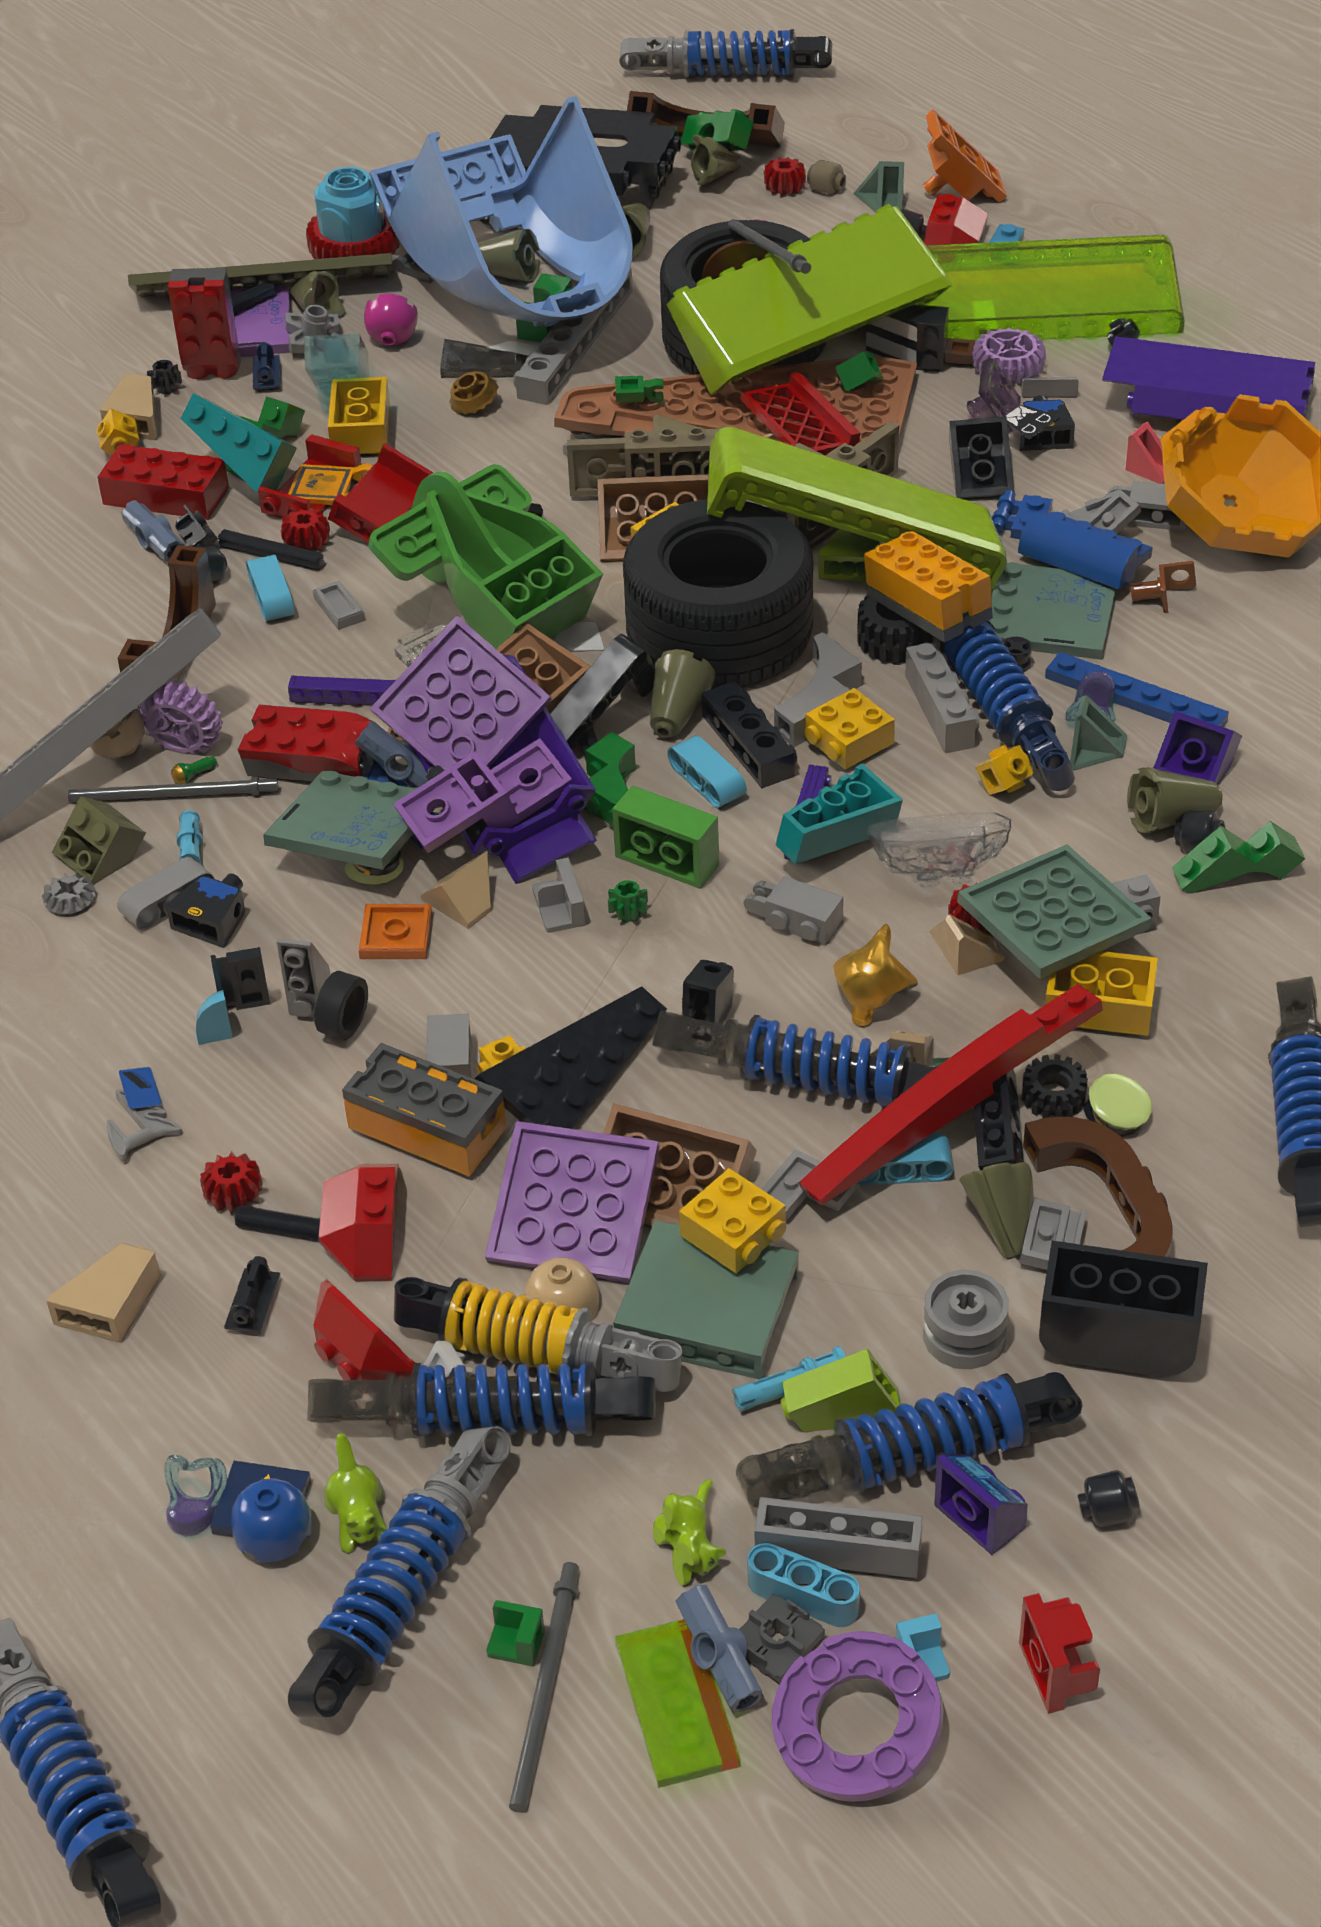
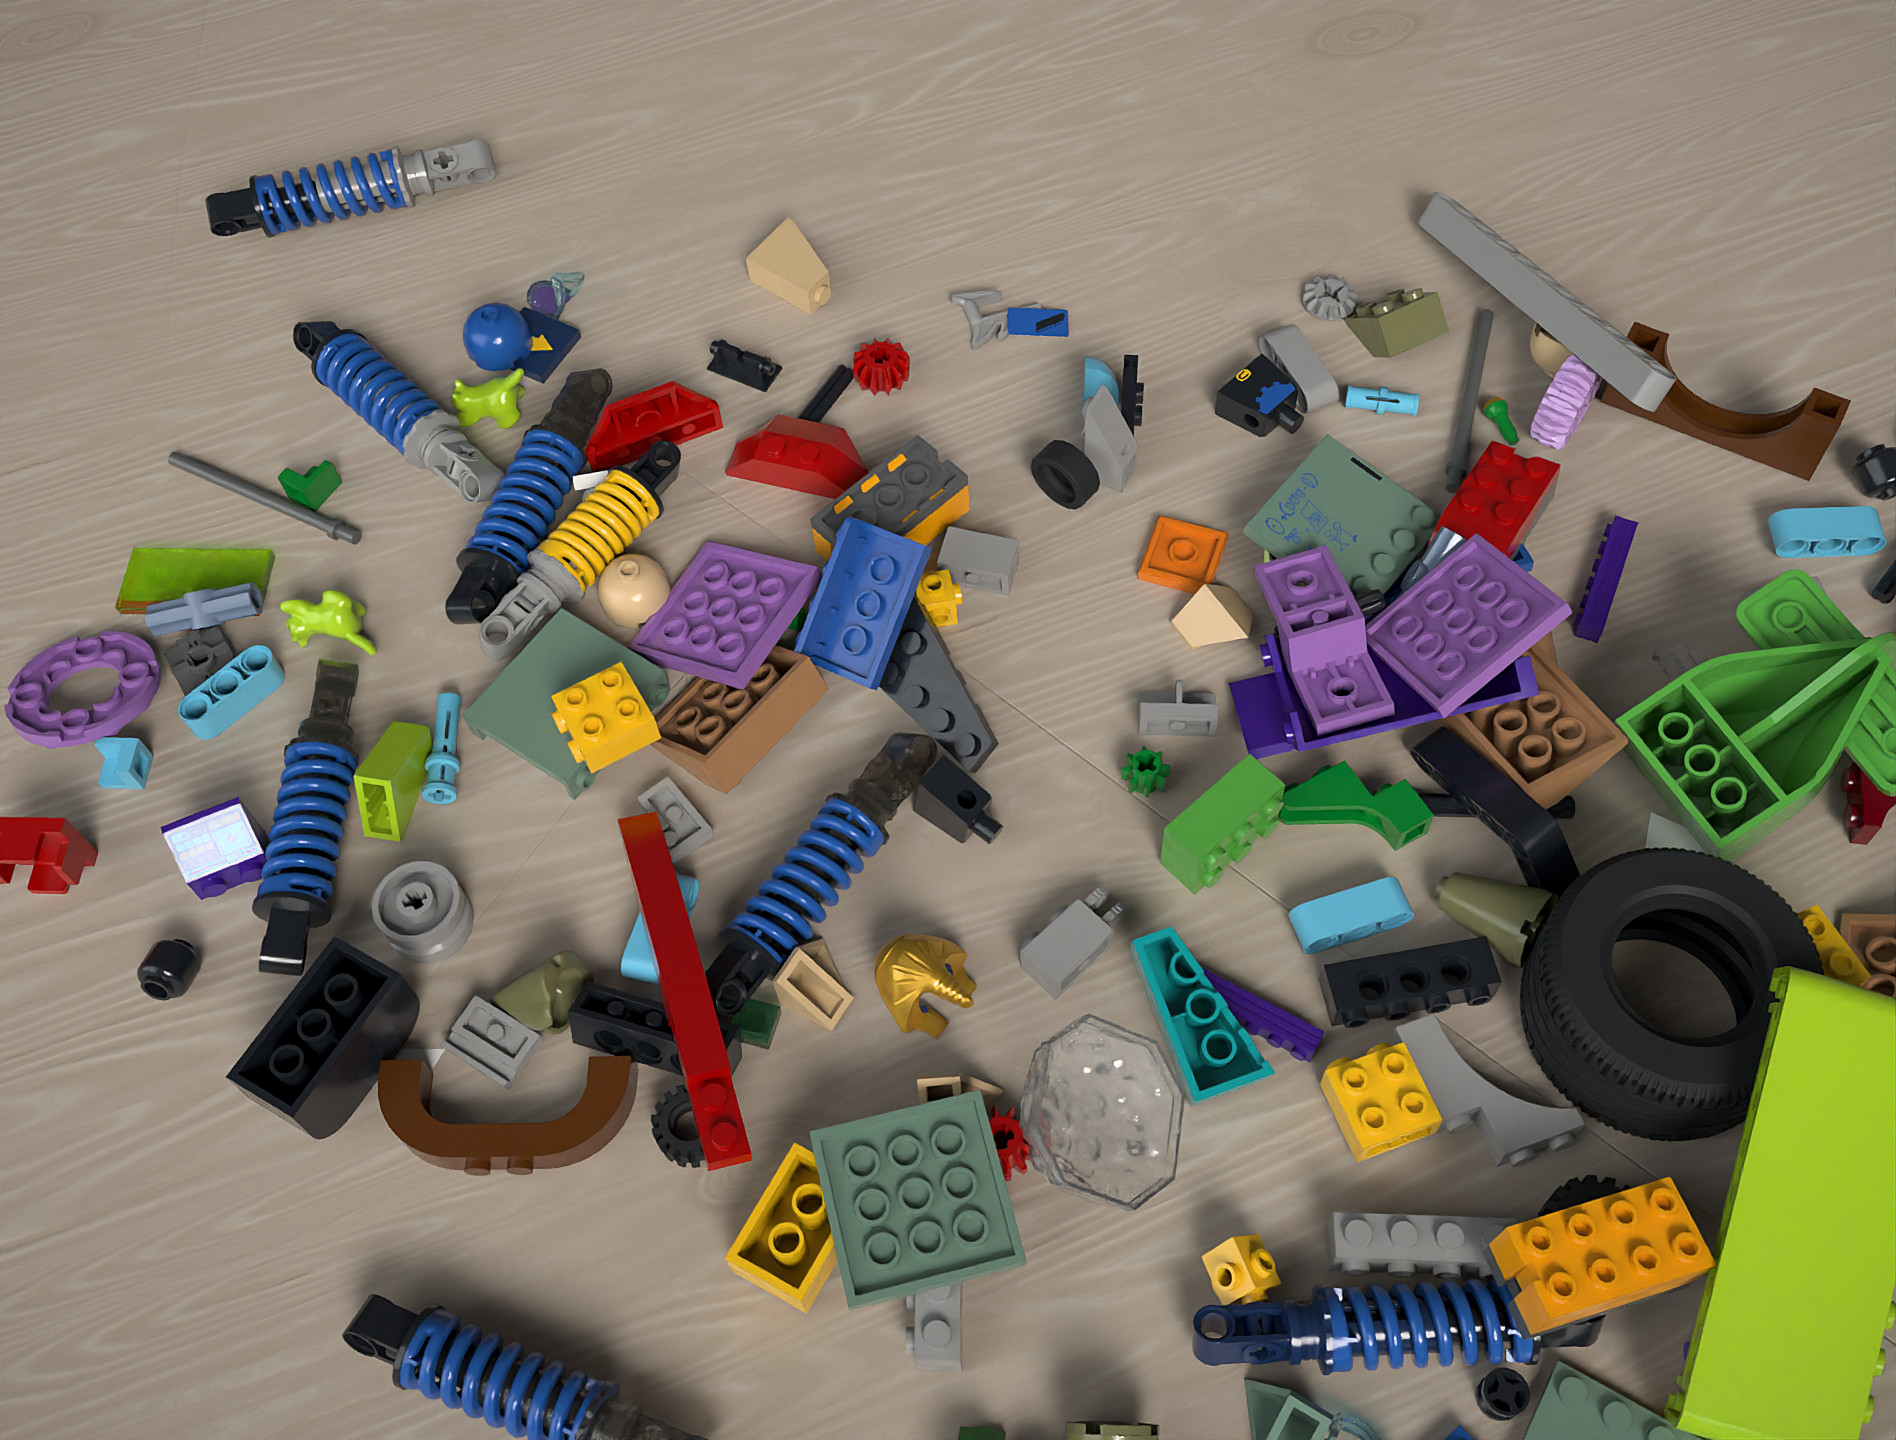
camera: 110 degrees right, 15 degrees up
(543, 1076) = (862, 601): none -> blue bracket
(843, 1535) = (249, 725): light grey brick -> none
(1118, 1104) = (633, 1182): yellowish green piece -> none

